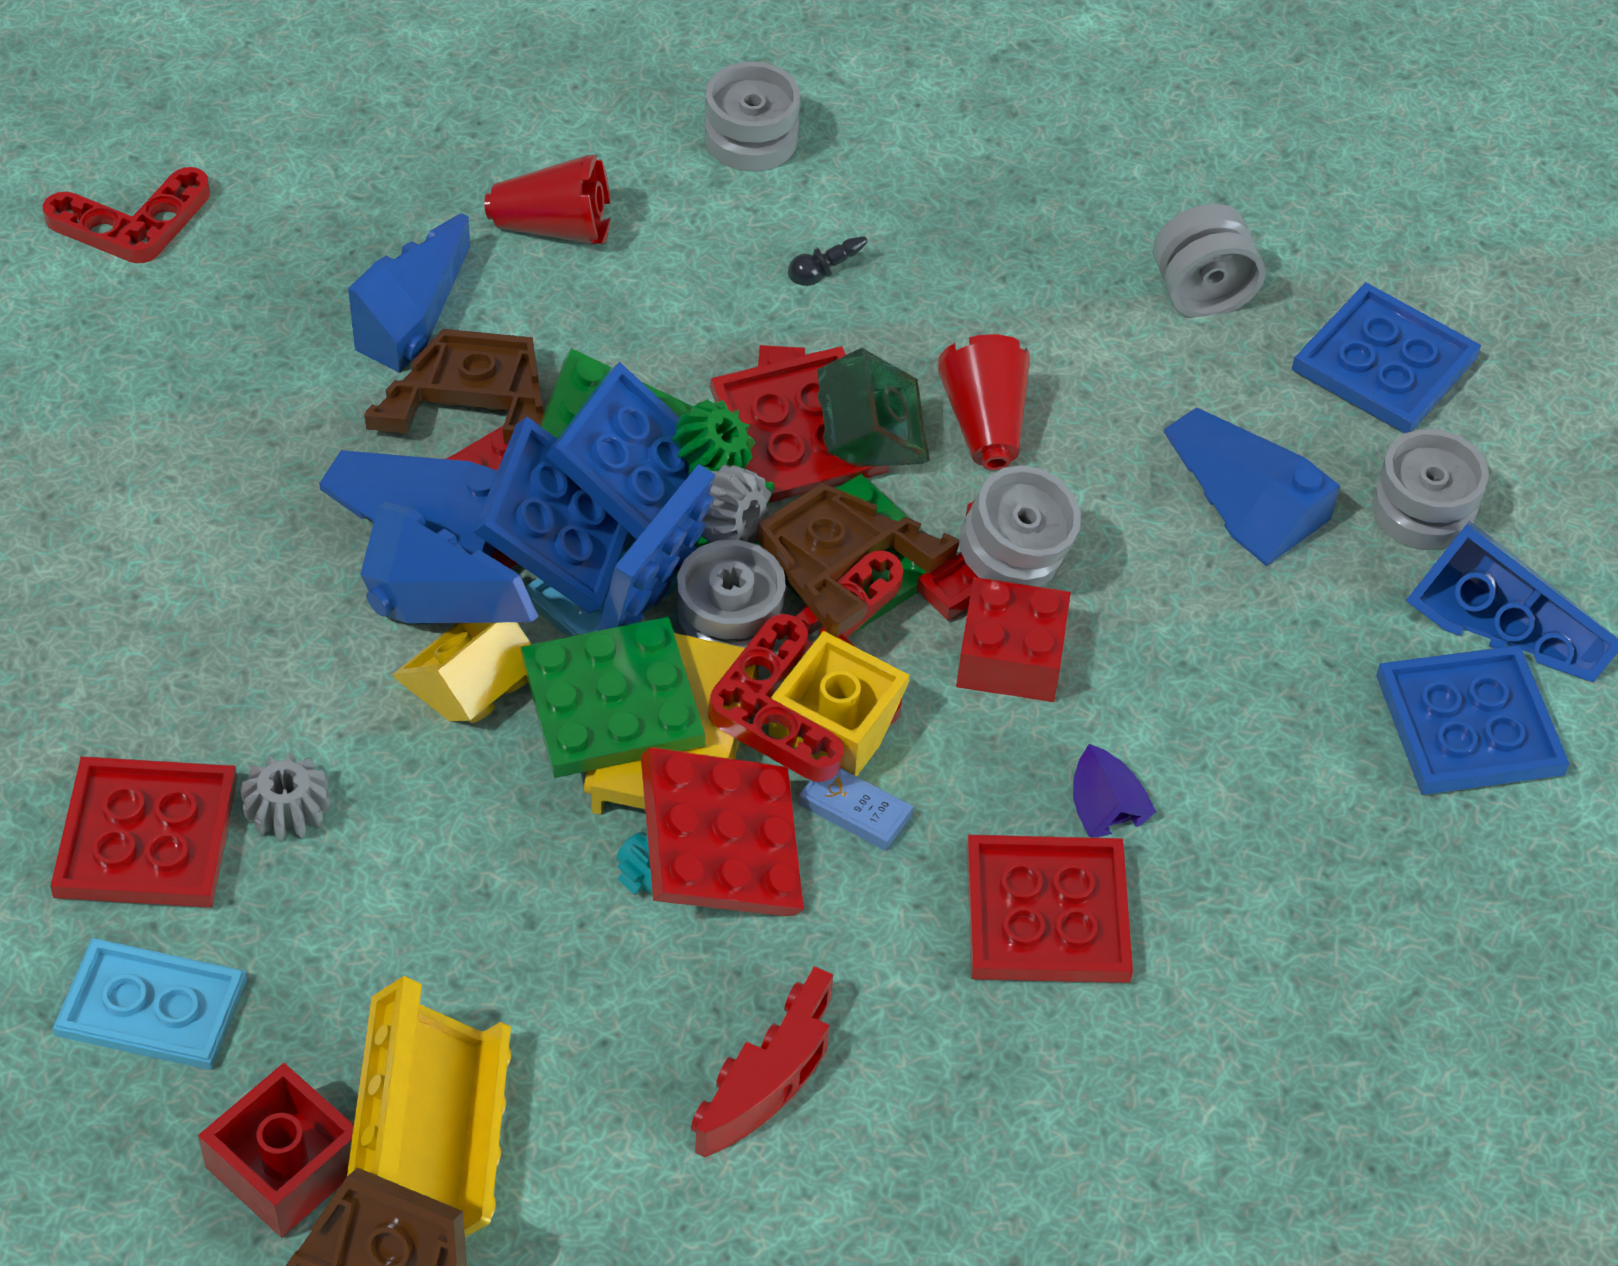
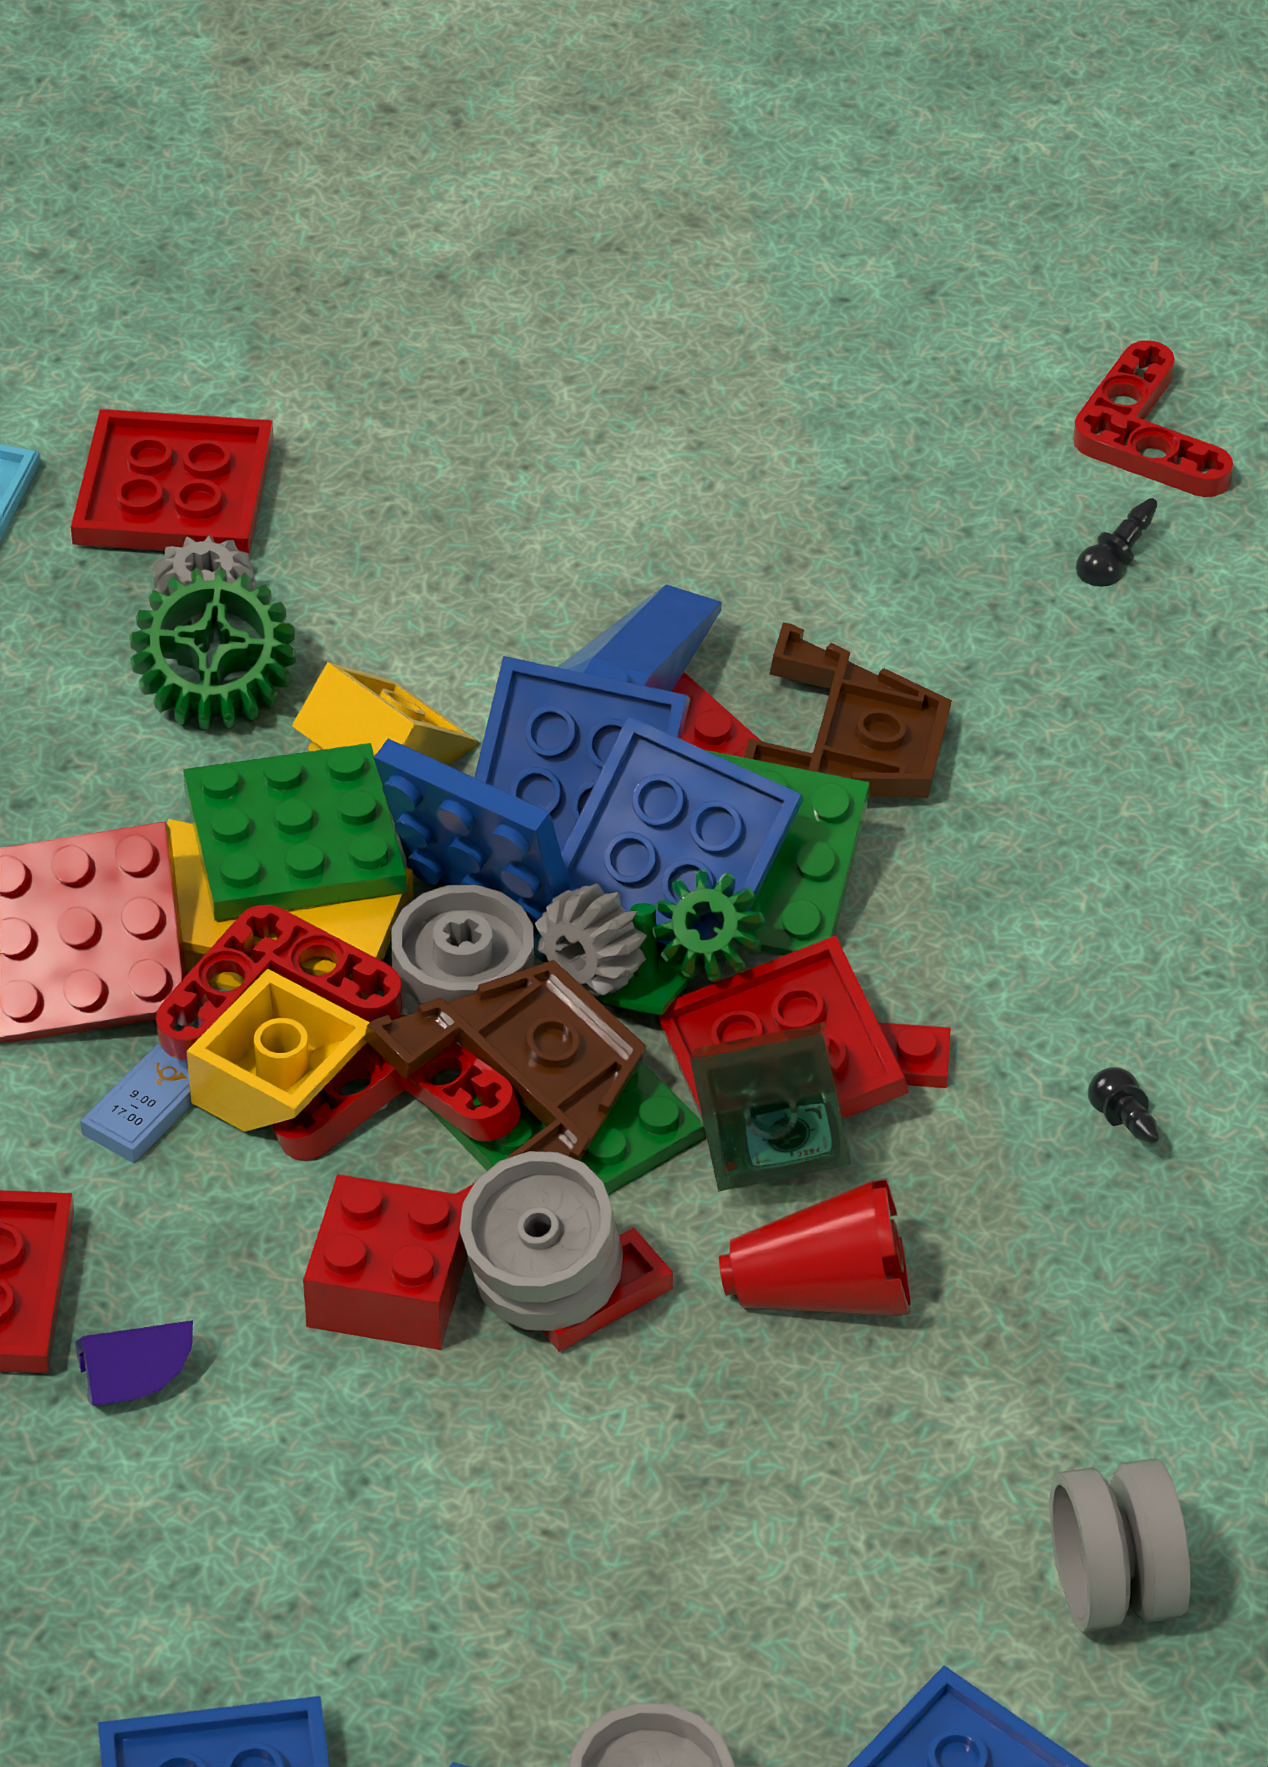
camera: 95 degrees right, 5 degrees down
(282, 250) = (1103, 563): none -> black bar
(386, 771) = (191, 643): none -> green gear
(402, 297) = (1000, 662): blue wedge -> none
(433, 579) = (462, 674): blue wedge -> none
(554, 201) = (1190, 811): red cone -> none
(1258, 487) = (681, 1598): blue wedge -> none

